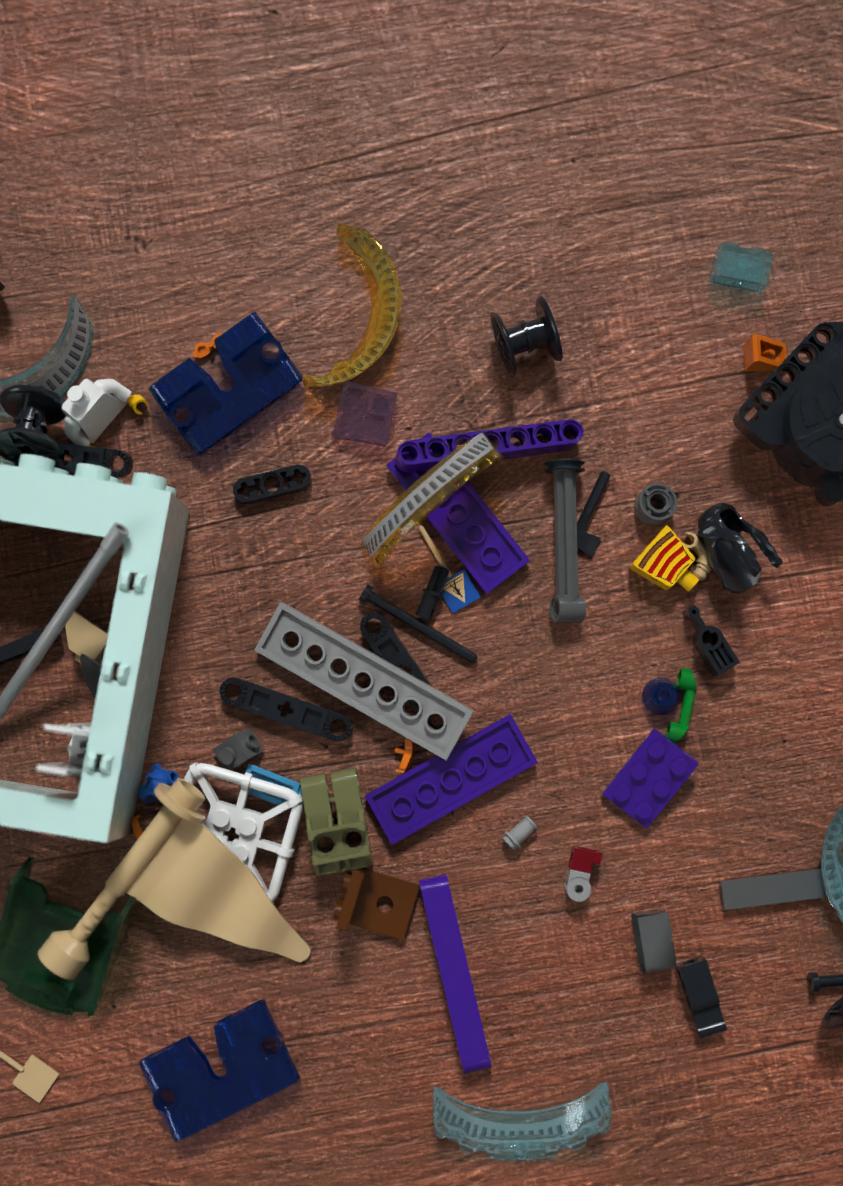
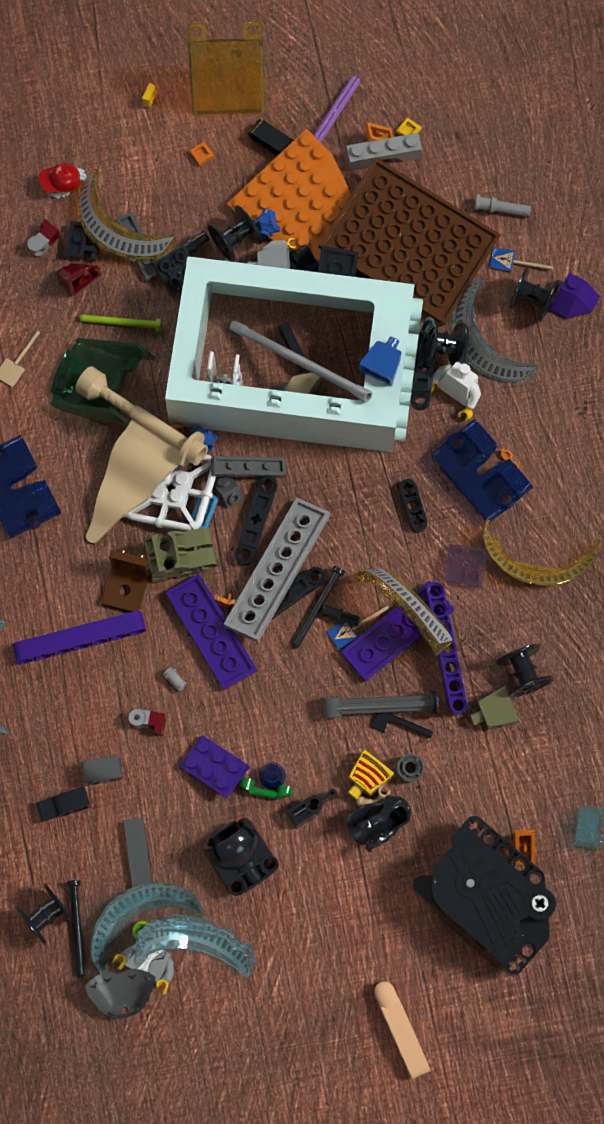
camera: 90 degrees right, 10 degrees down
(65, 504) = (382, 361): none -> blue torso
(205, 719) = (248, 466): none -> dark grey tile
(576, 383) = (495, 711): none -> olive torso
(782, 745) = (239, 855): none -> black piece

